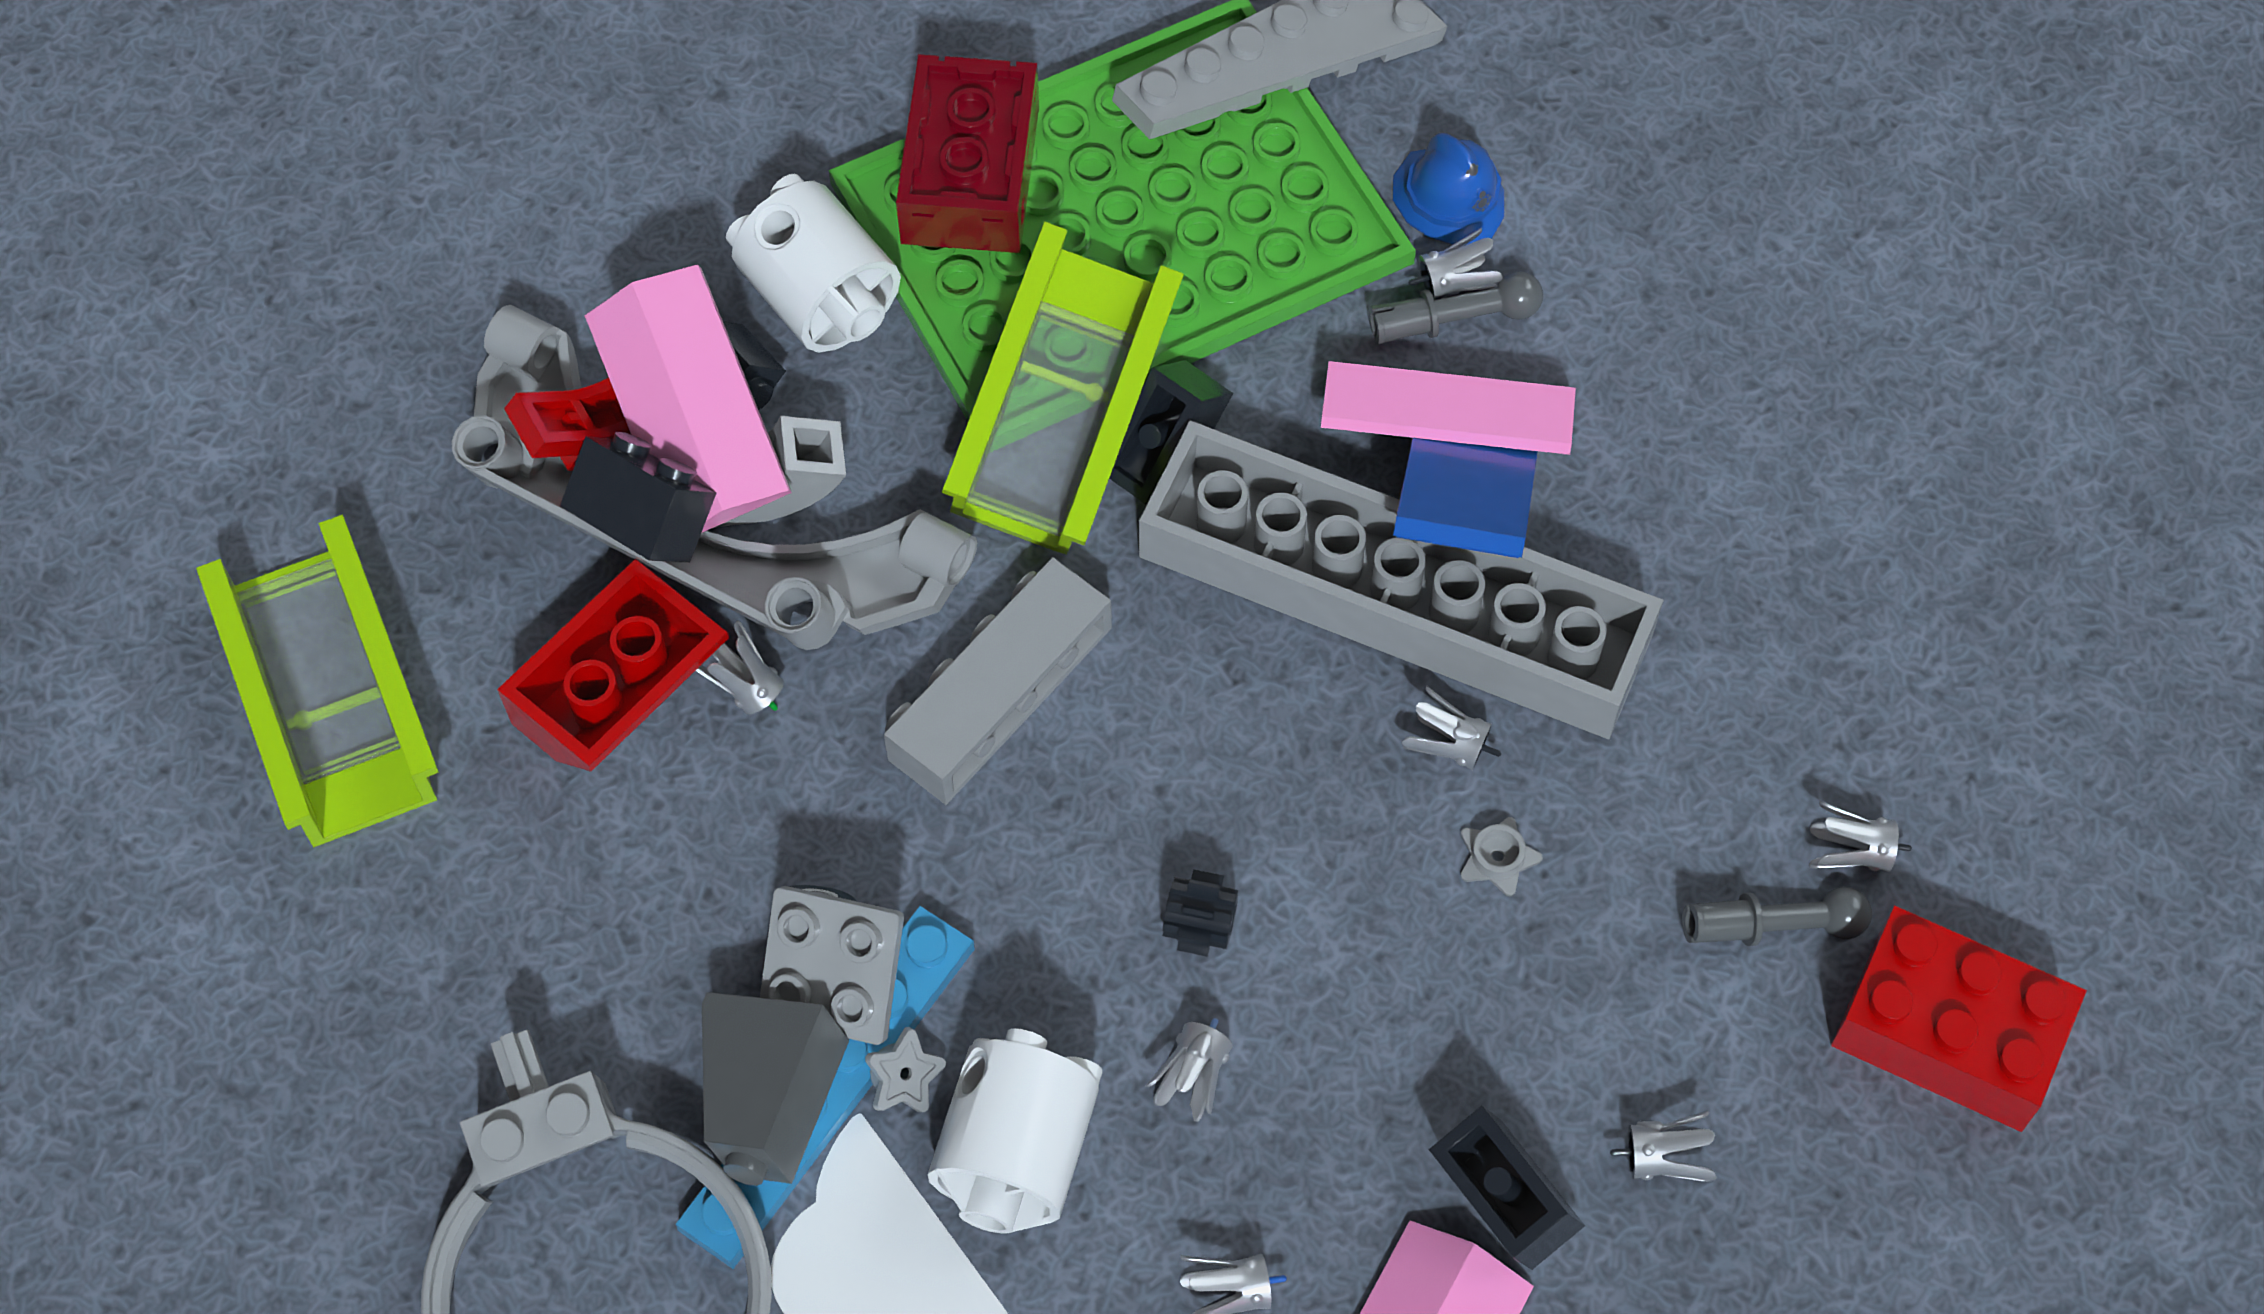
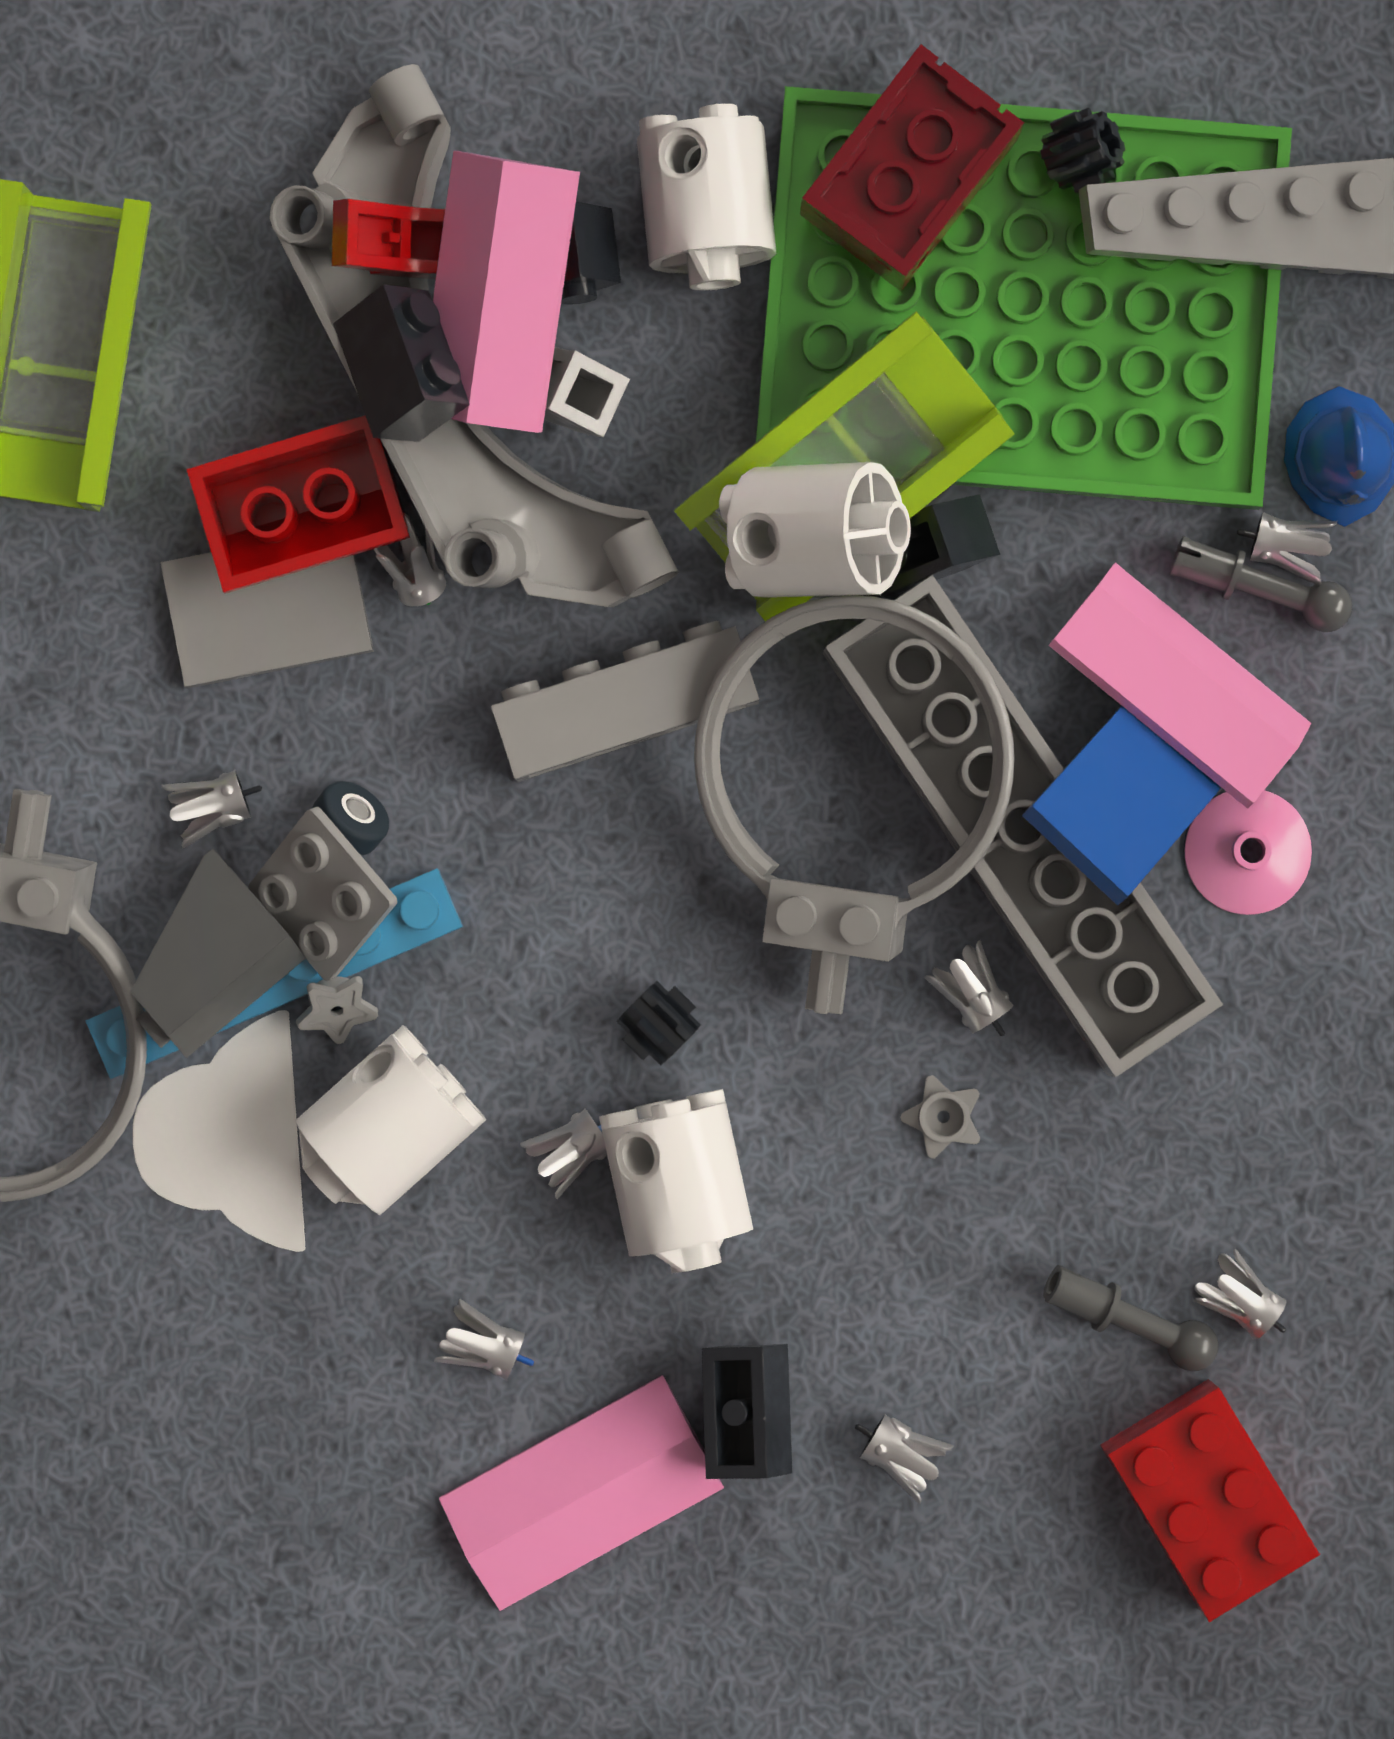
camera: 30 degrees right, 25 degrees up
(637, 795) = (265, 626): none -> light grey tile
(690, 953) = (213, 802): none -> flat silver piece
(1072, 415) = (814, 530): none -> white cylinder
(1092, 74) = (1082, 149): none -> black gear
(1285, 732) = (830, 918): none -> light grey brick
(1305, 1021) = (677, 1179): none -> white cylinder
(1590, 530) = (1216, 860): none -> bright pink dish

